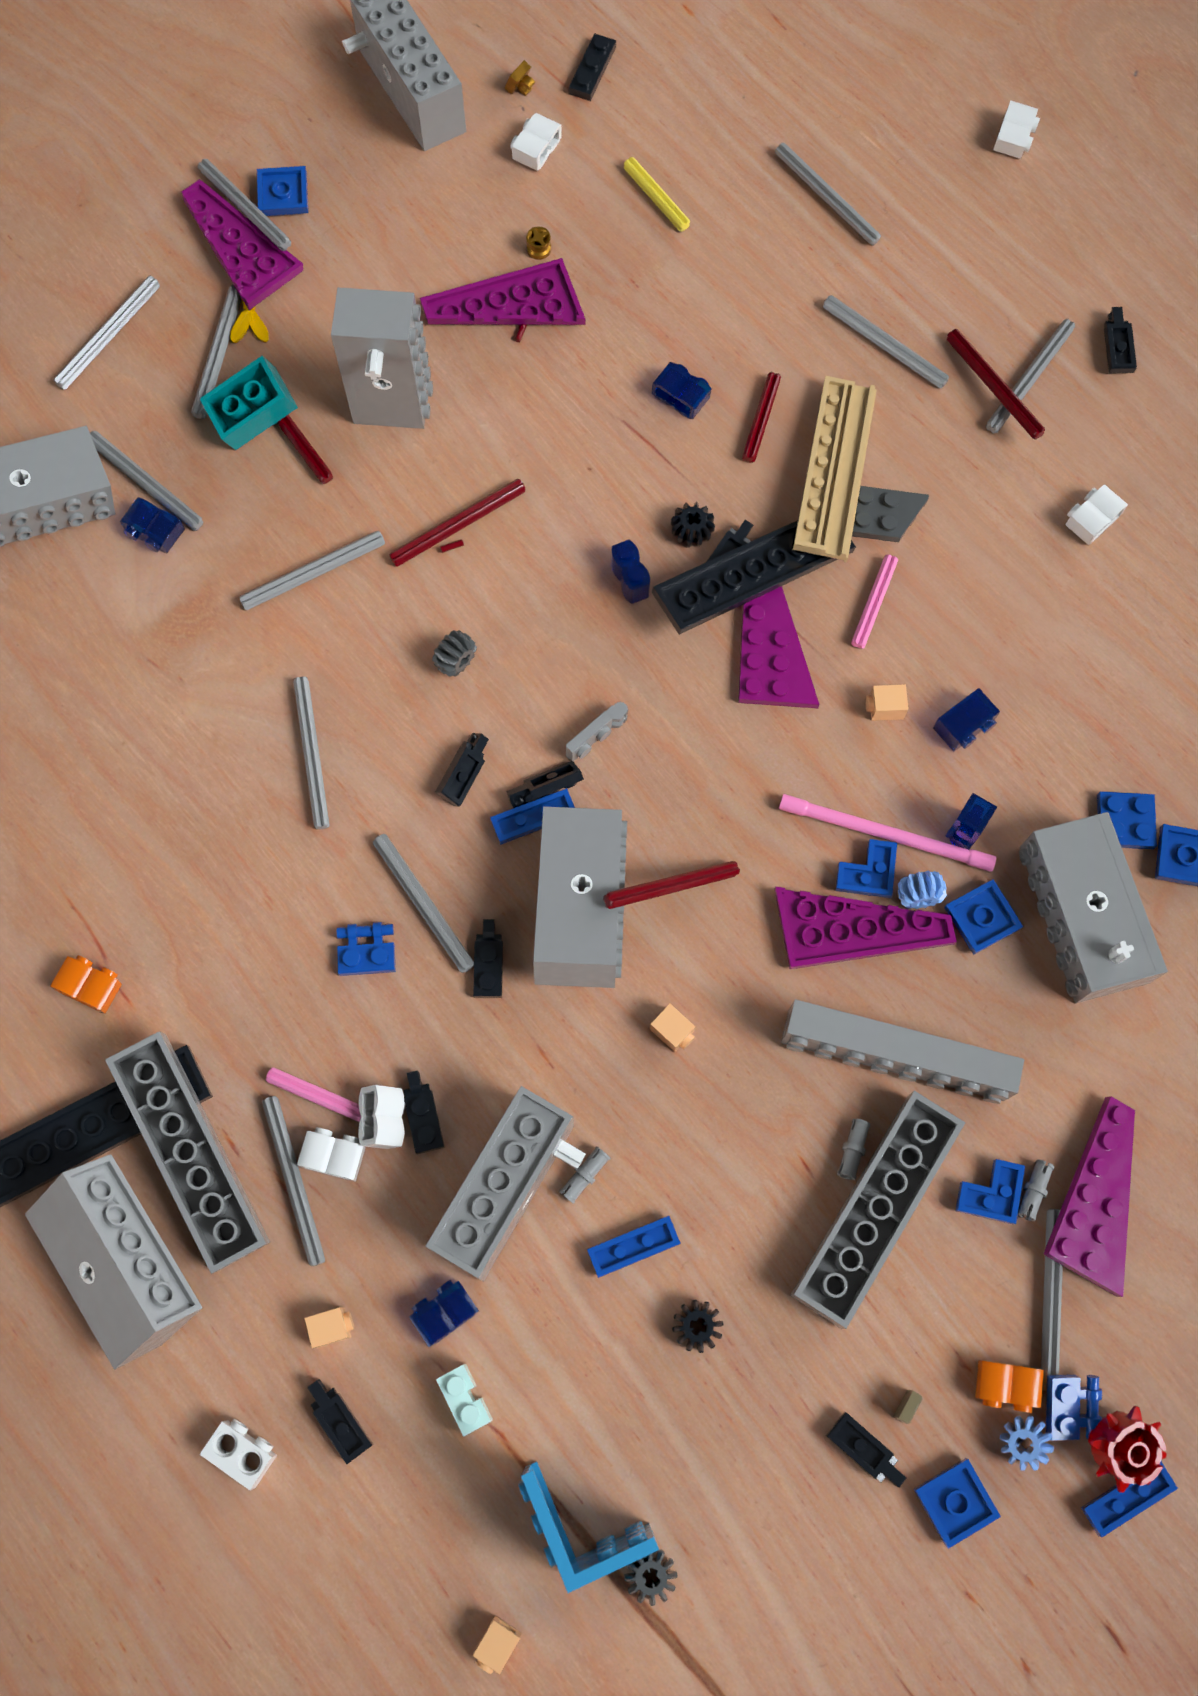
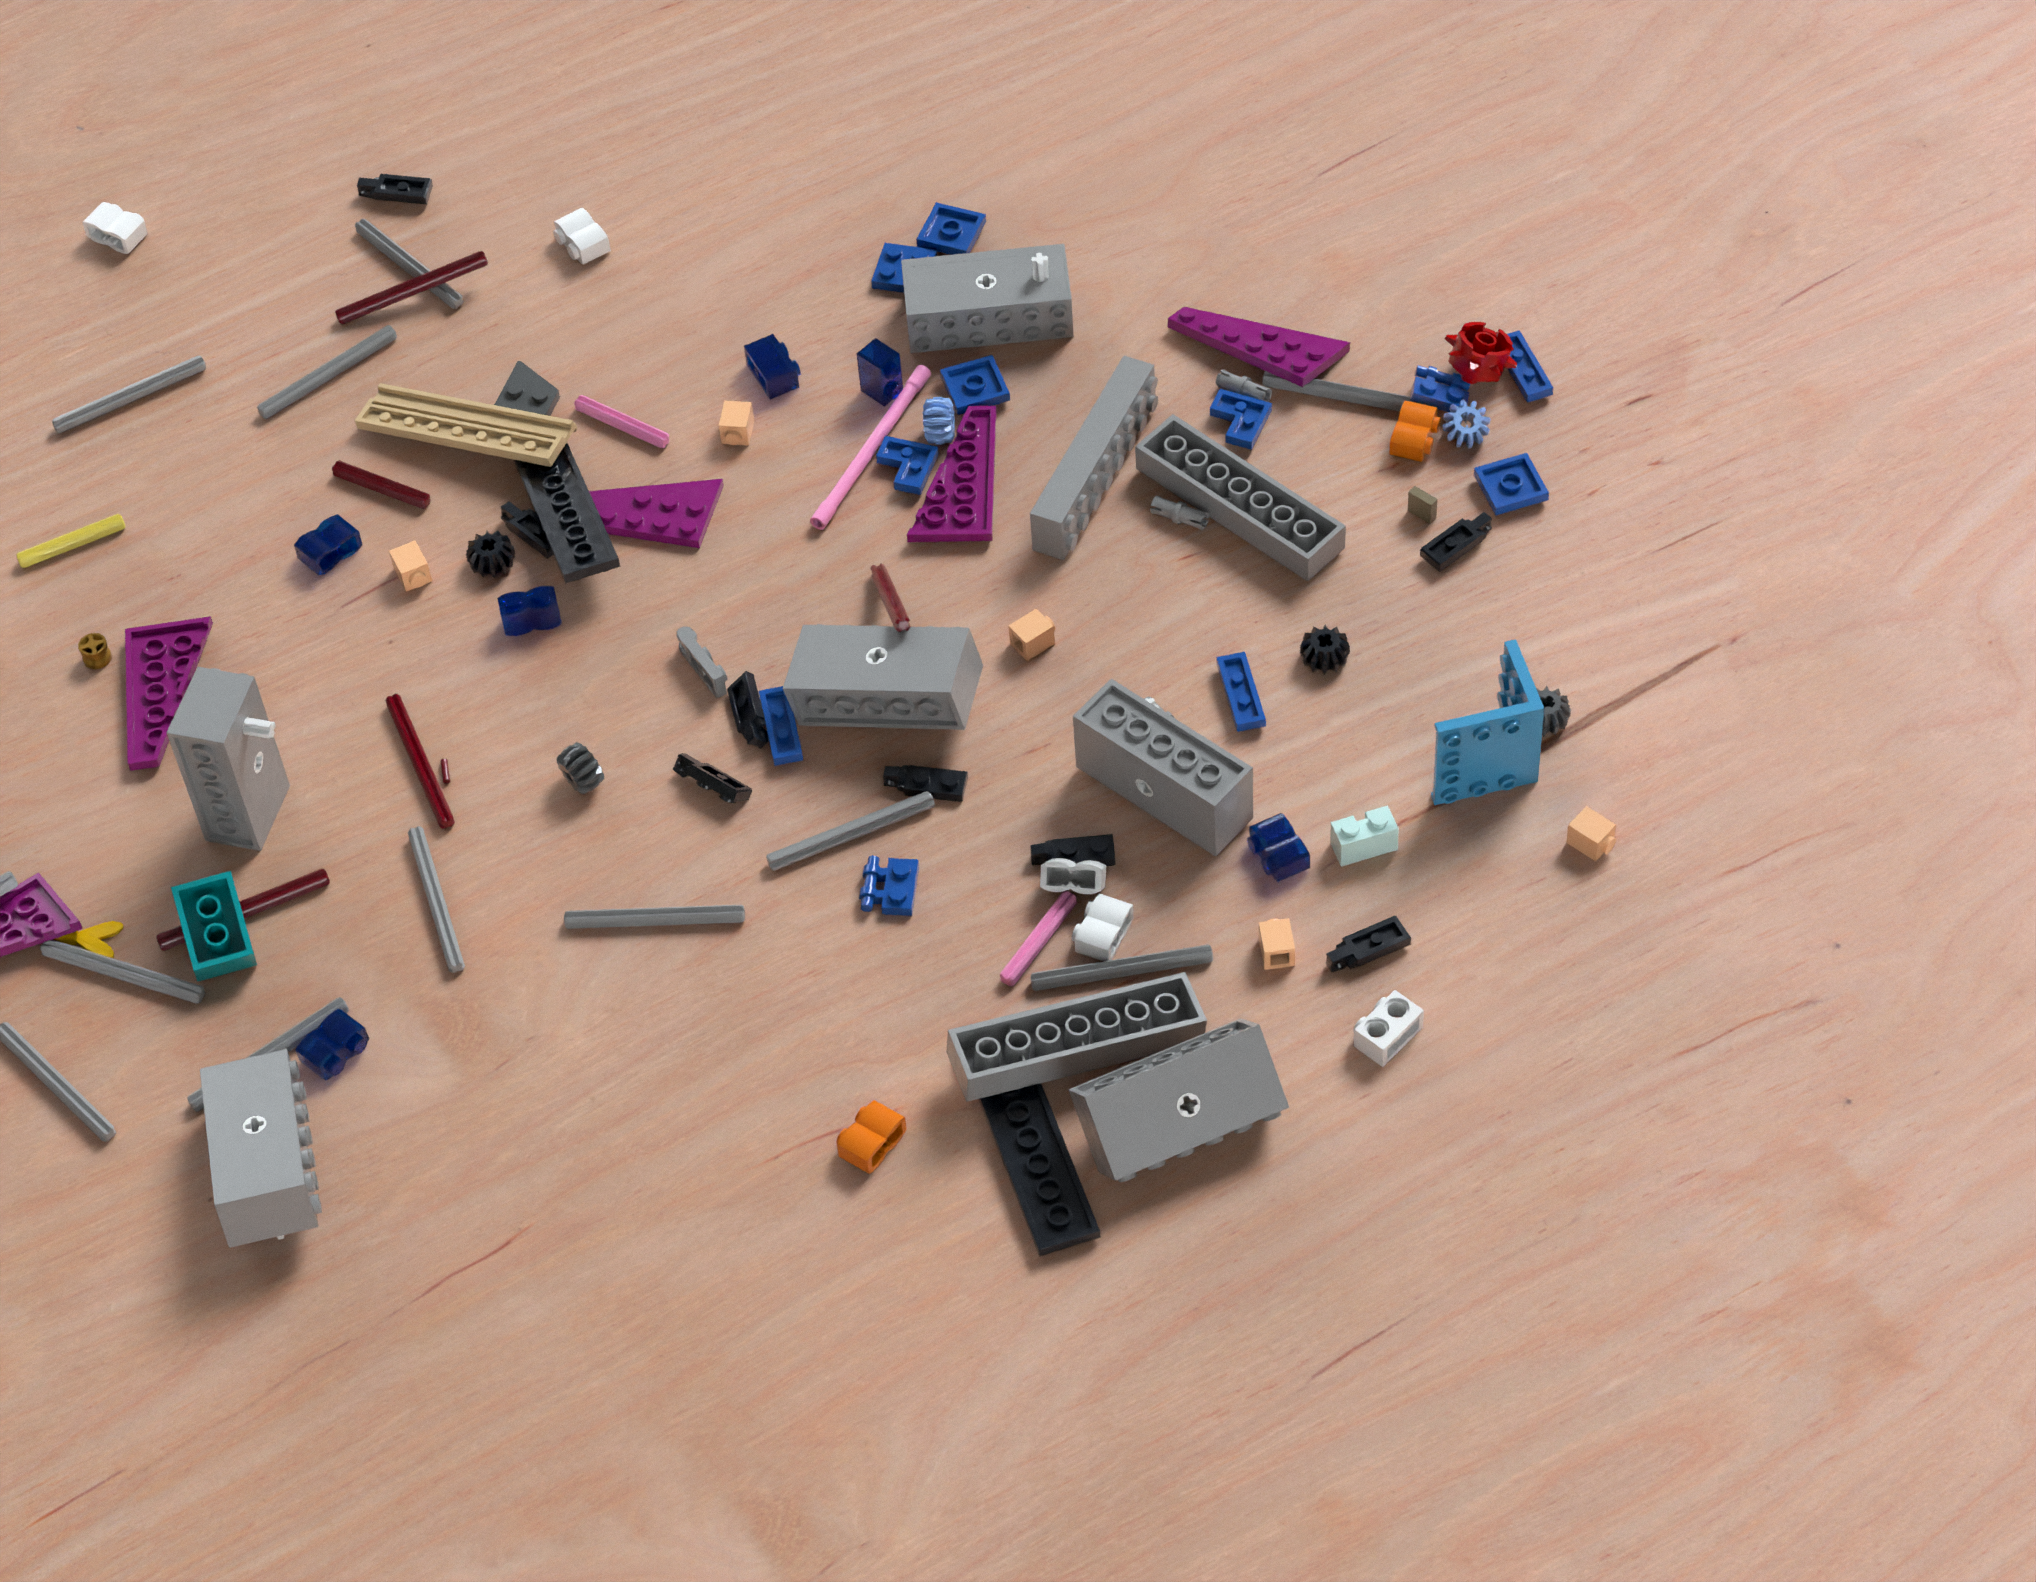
camera: 75 degrees left, 20 degrees down
(667, 462) = (410, 566): none -> light nougat brick

